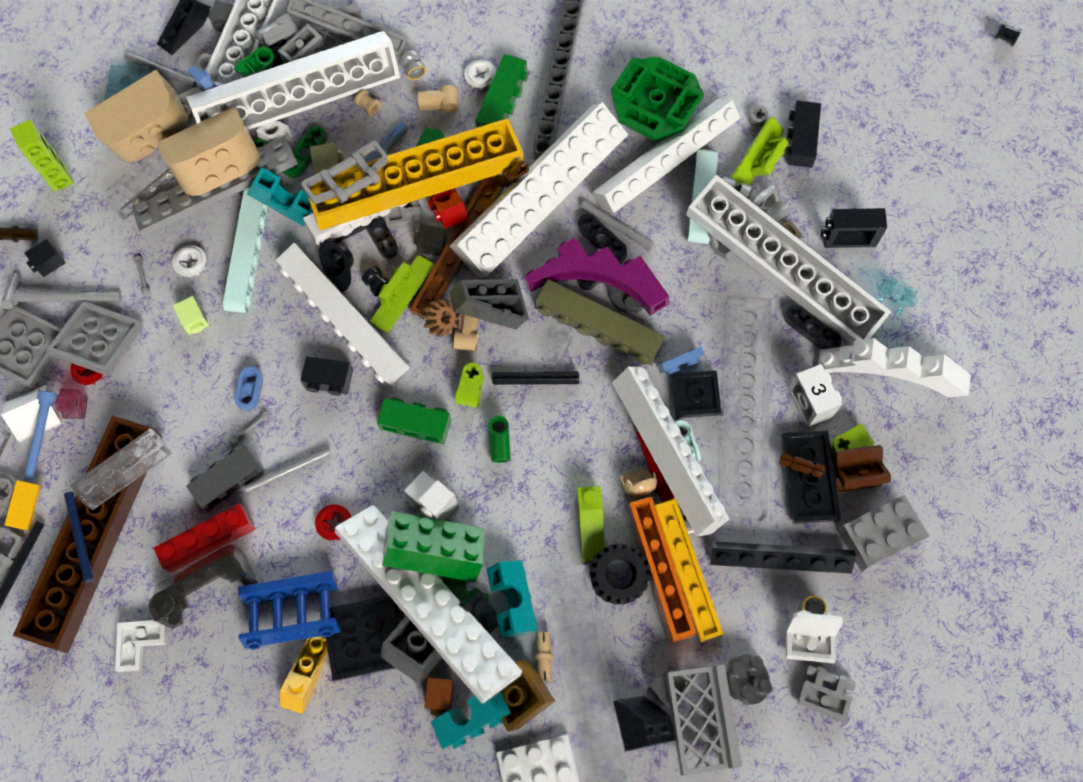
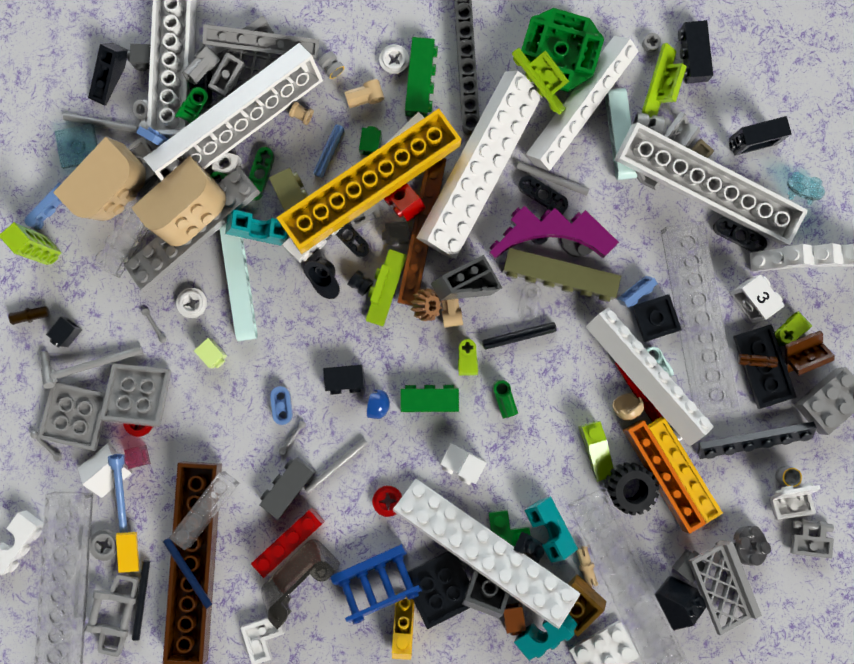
camera: 15 degrees left, 15 degrees up
(70, 135) = (43, 210): none -> medium blue plate
(343, 314) = (340, 320): white brick -> none
(353, 410) = (378, 404): none -> blue hair
(356, 158) = (316, 185): light grey bar -> none
(433, 546) = (479, 507): green brick -> none
(513, 174) = (455, 158): reddish brown axle -> none
(631, 115) = (545, 76): none -> lime bracket

